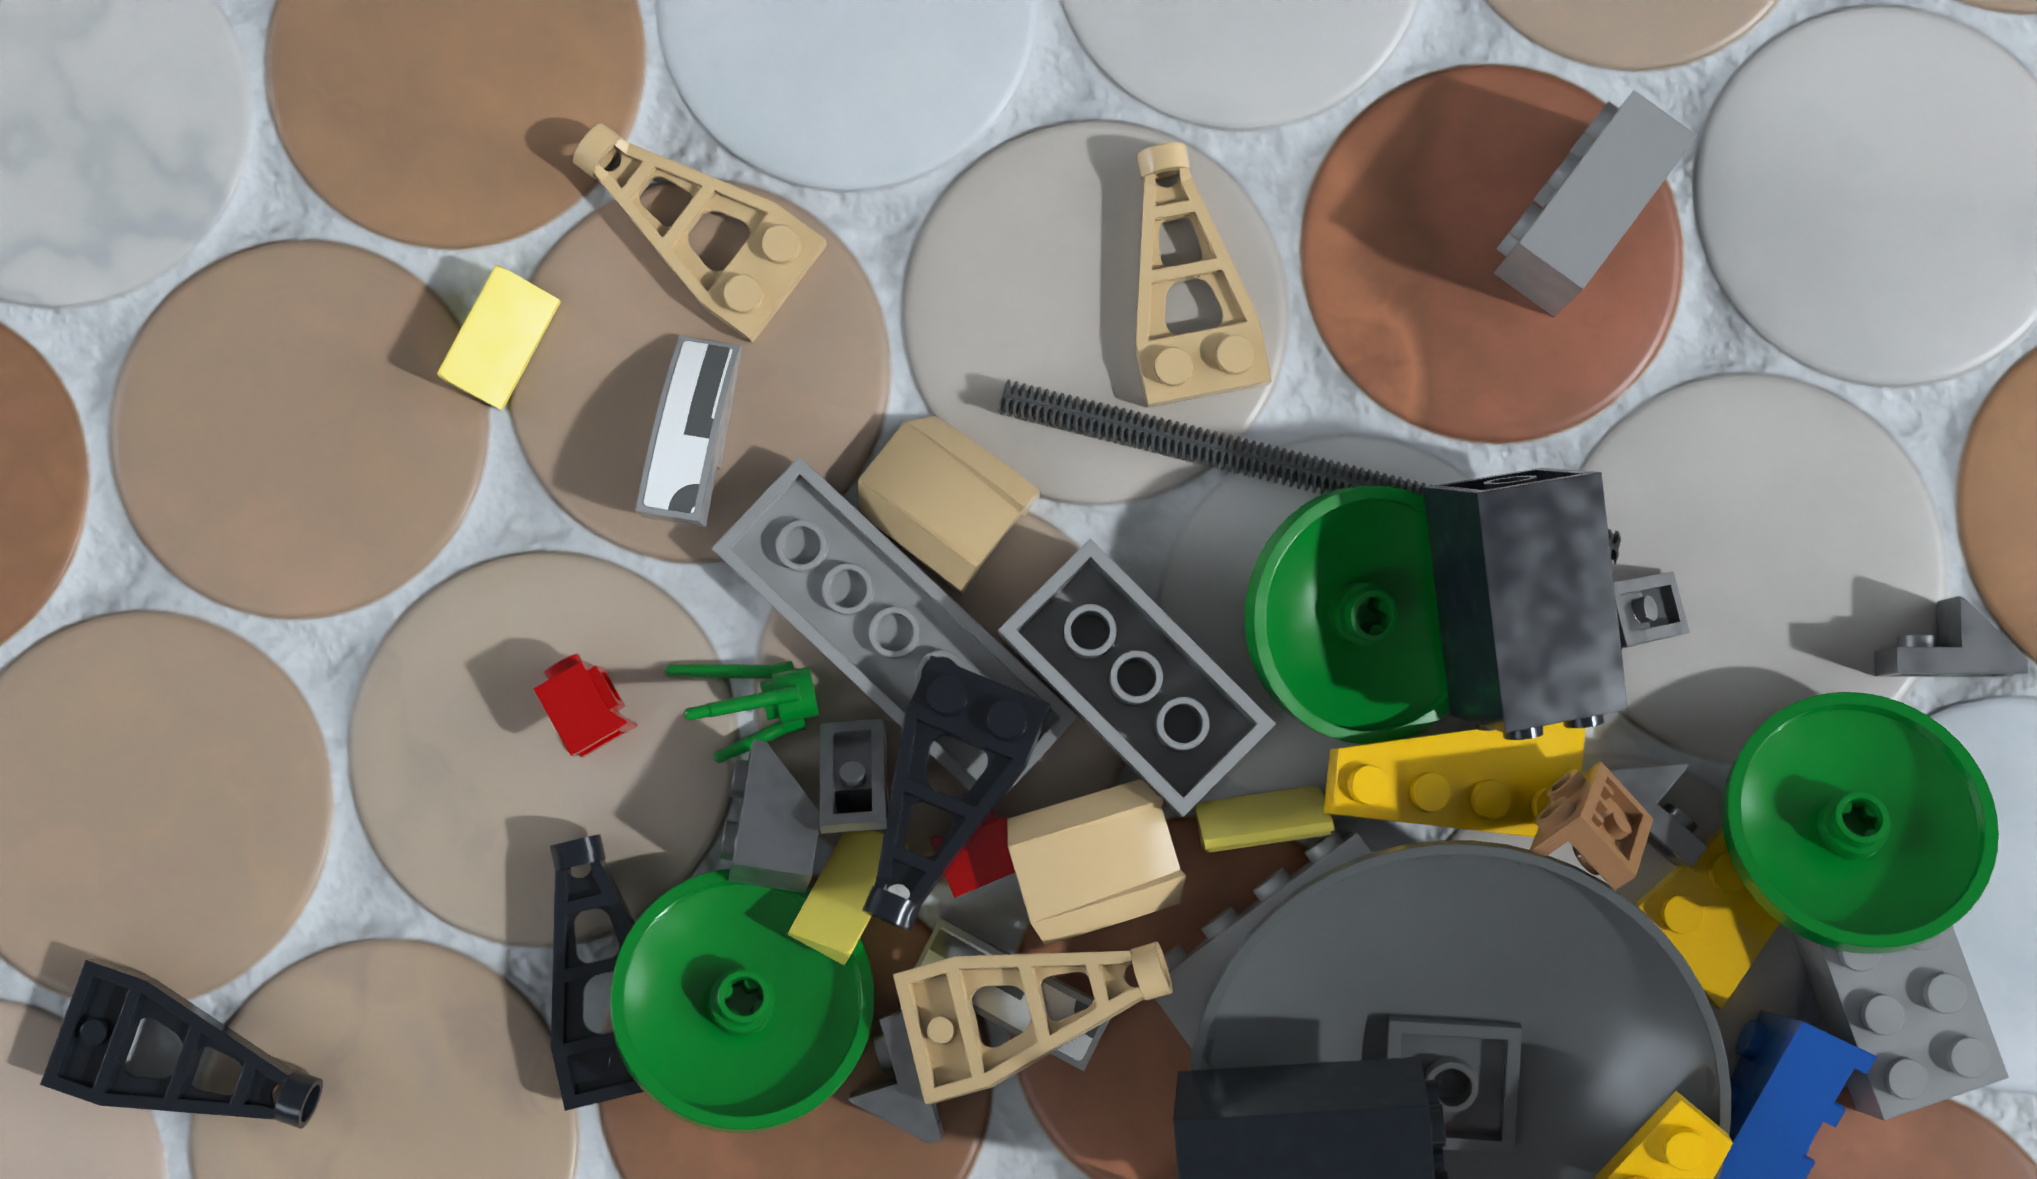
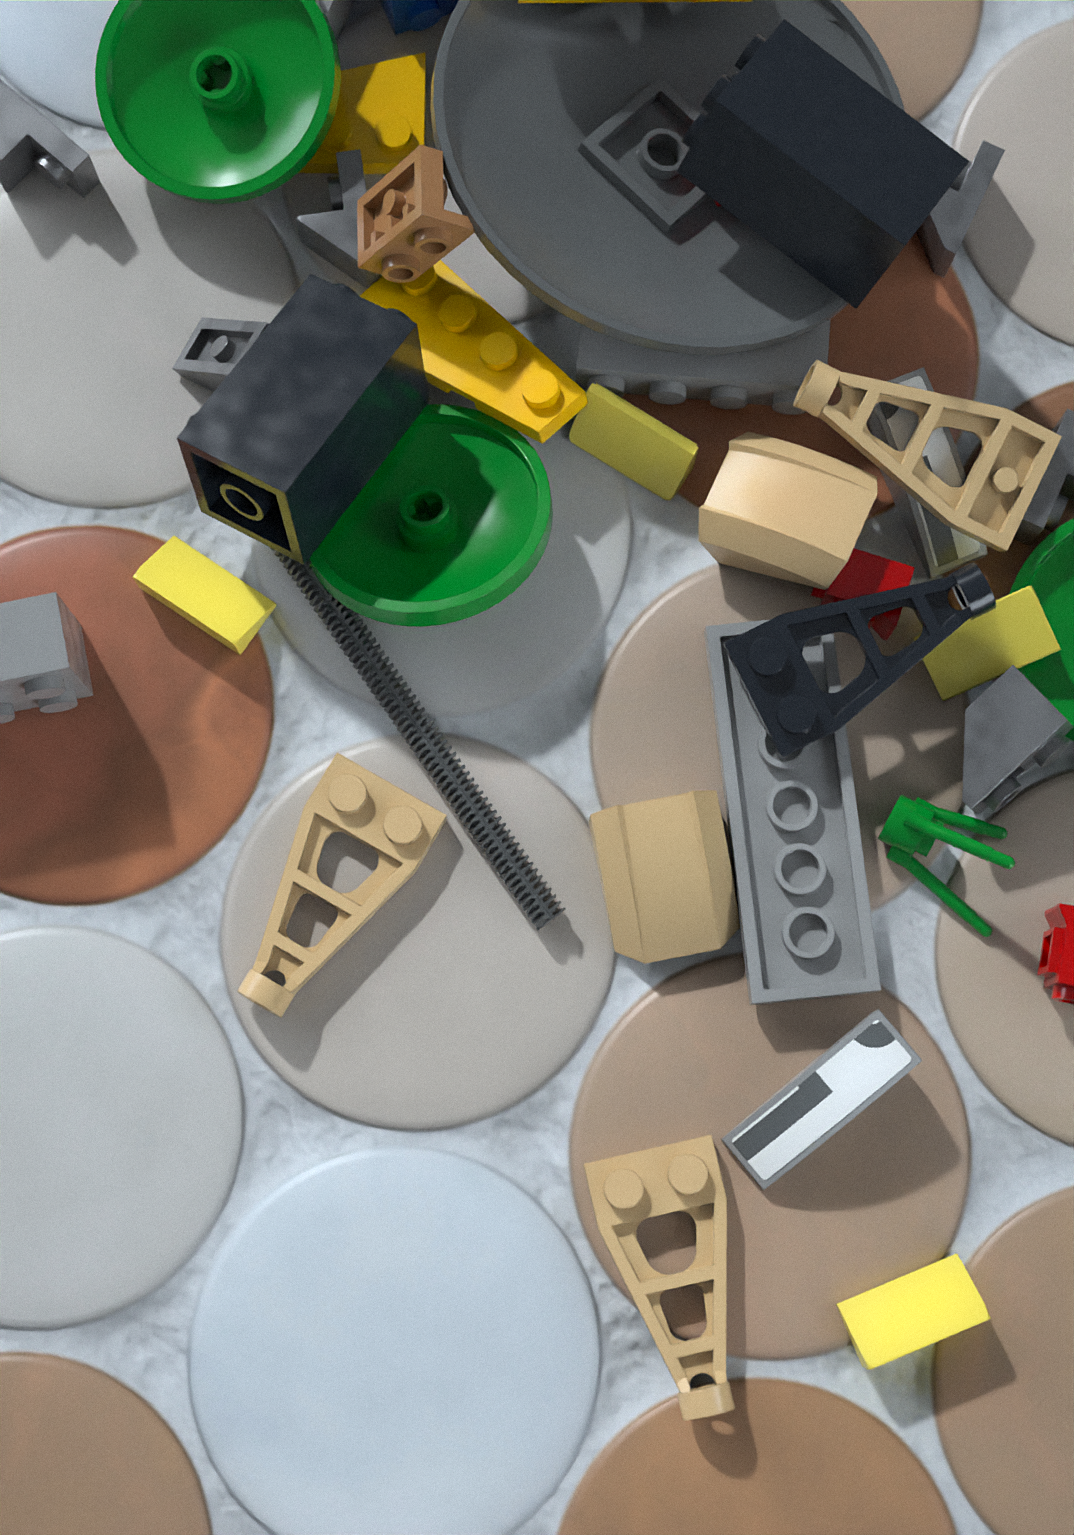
camera: 145 degrees left, 5 degrees down
(853, 776) = (916, 720): flat silver slope -> none
(1135, 678) = (642, 613): light grey brick -> none
(1482, 415) = (204, 594): none -> light yellow slope

